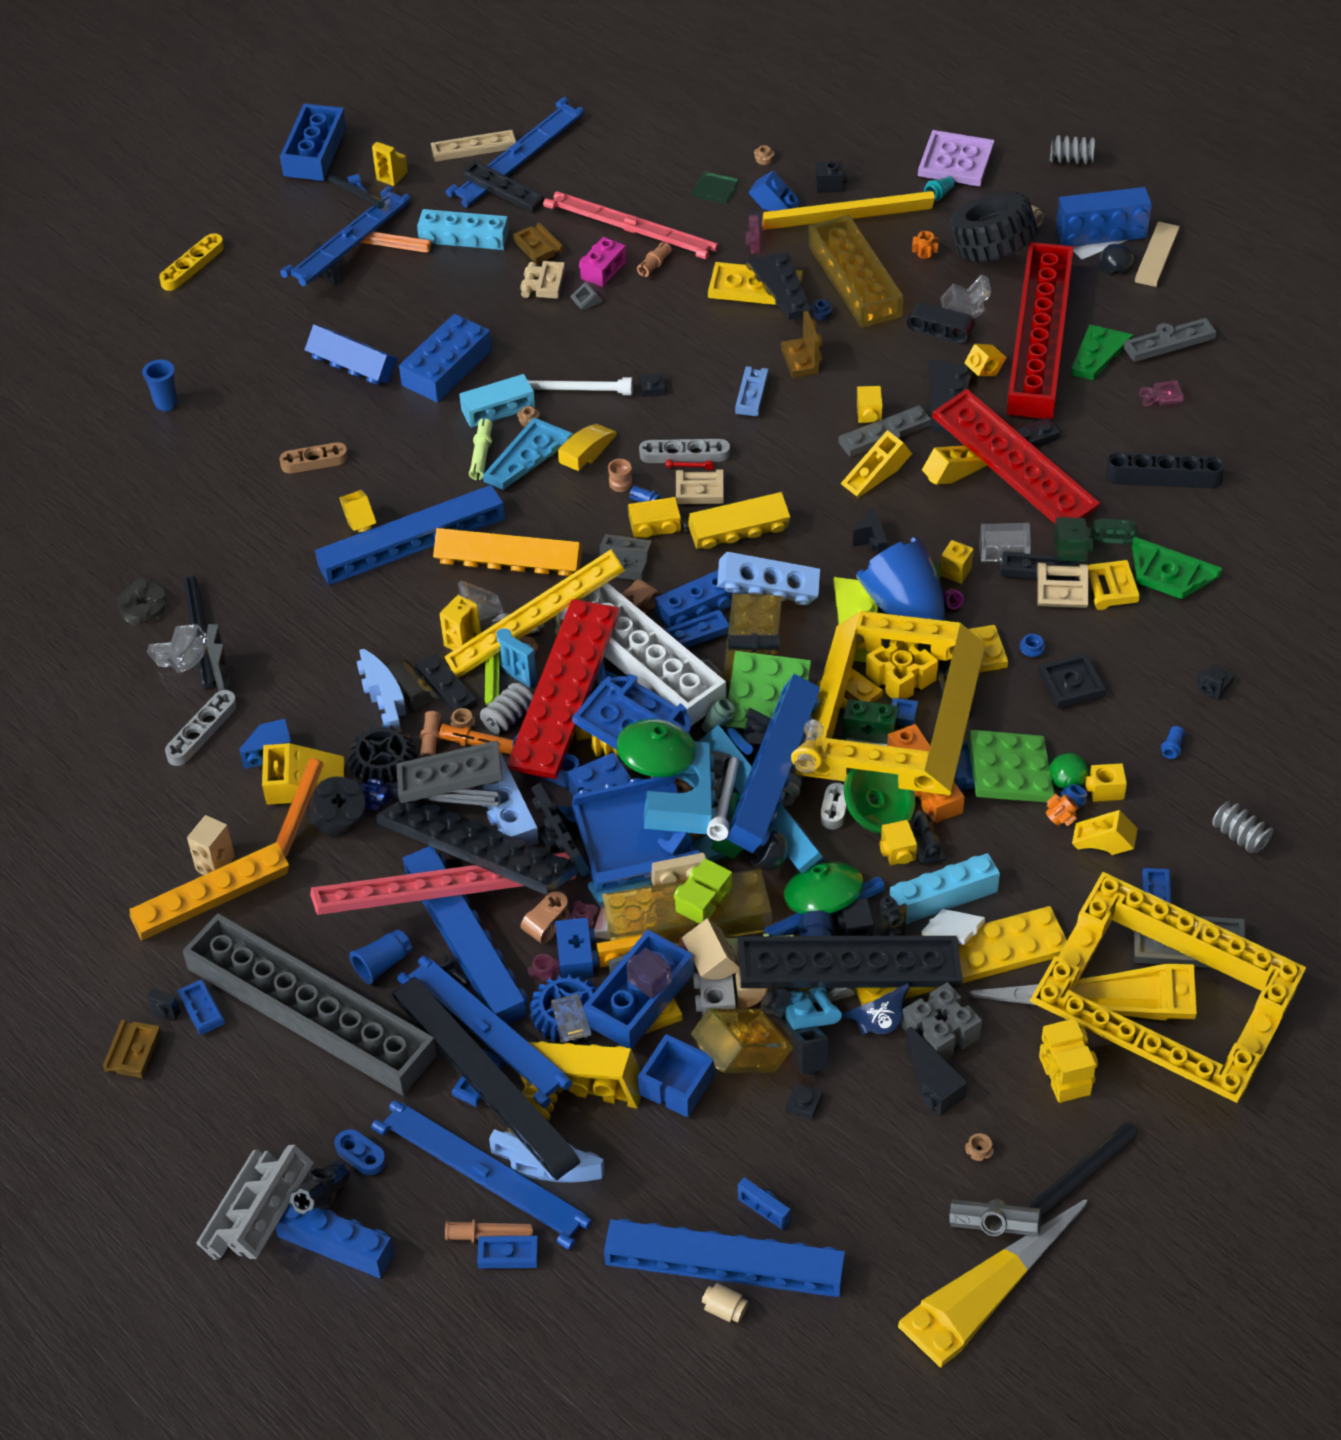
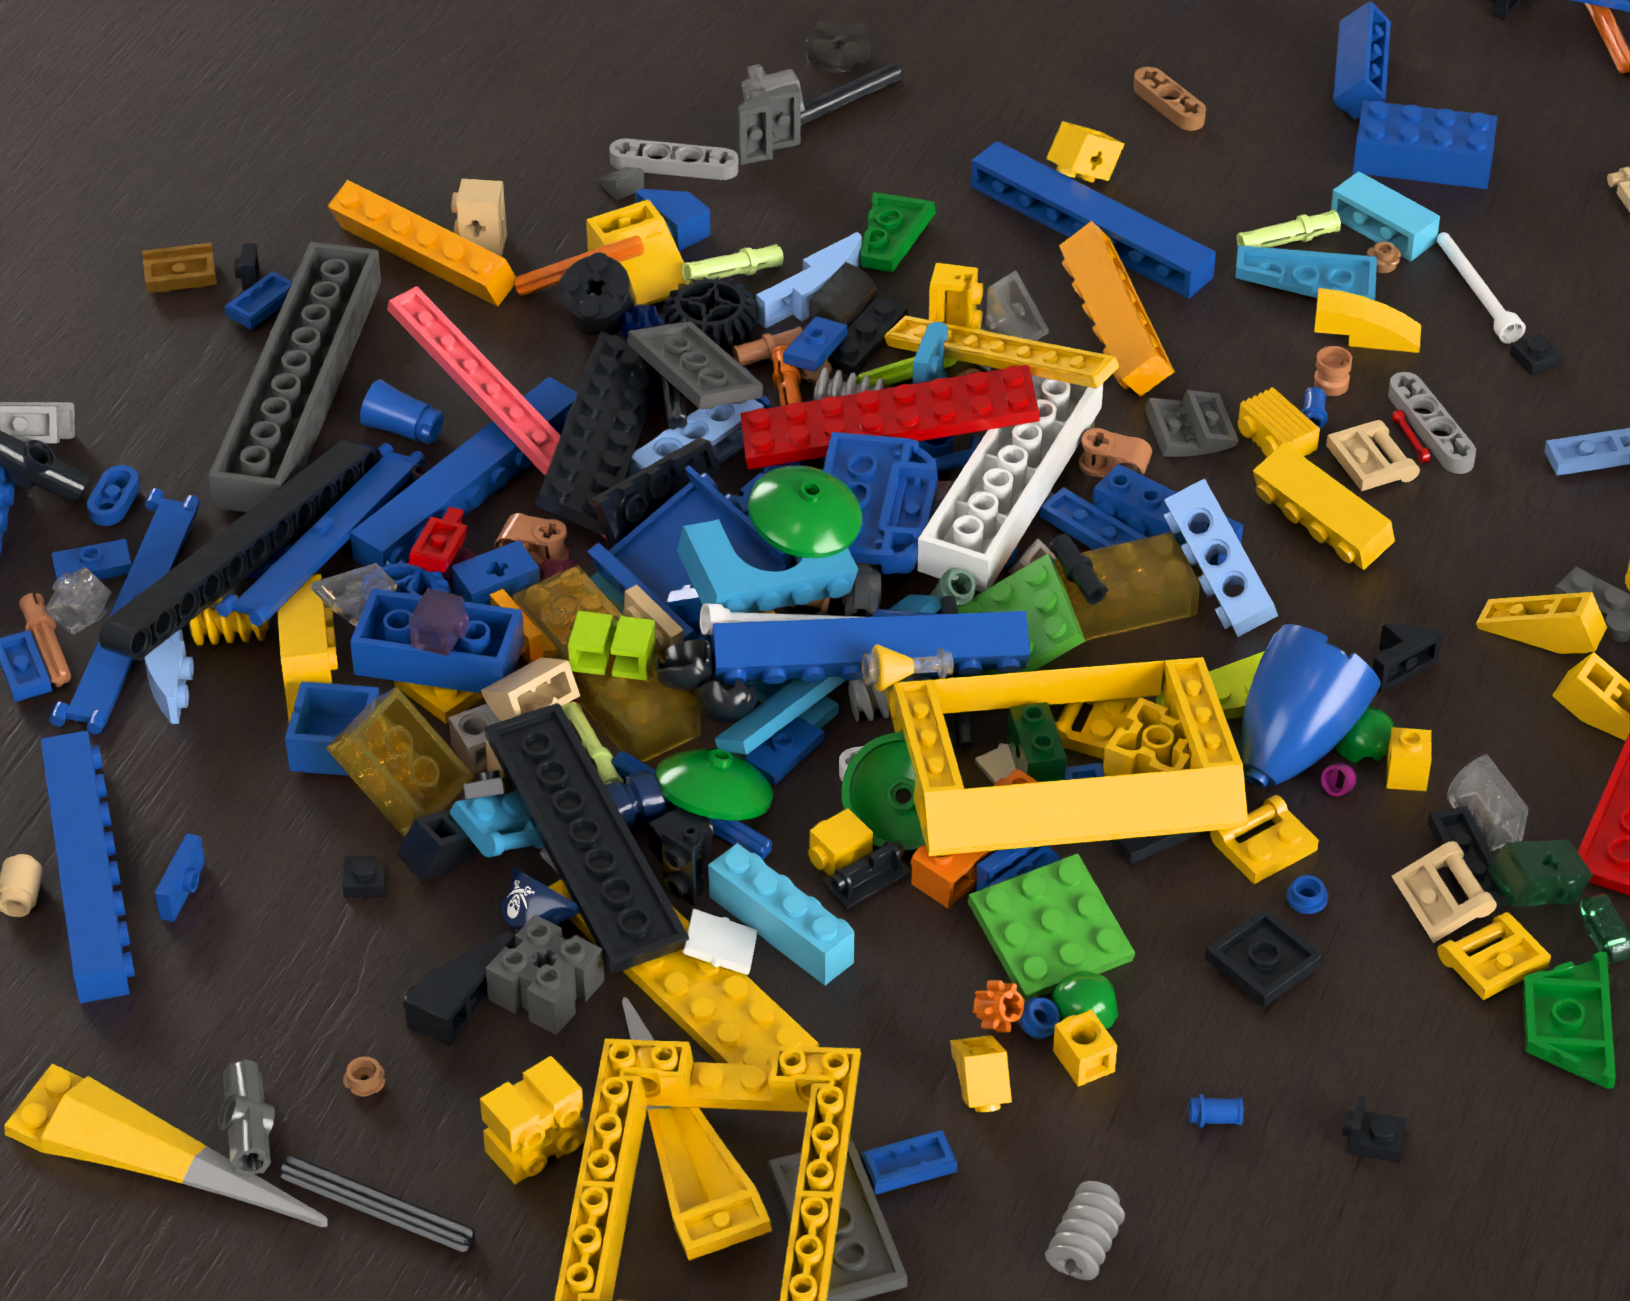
camera: 65 degrees right, 5 degrees down
(204, 762) = (623, 182): none -> dark grey slope
(339, 721) = (745, 261): none -> yellowish green pin
(351, 633) = (893, 229): none -> green wing
(419, 1185) = (101, 560): none -> blue plate
(453, 707) = (815, 344): none -> blue plate
(468, 1197) = (78, 600): none -> clear brick
(536, 963) = (439, 542): none -> red hinge
(743, 857) = (686, 665): none -> black hair

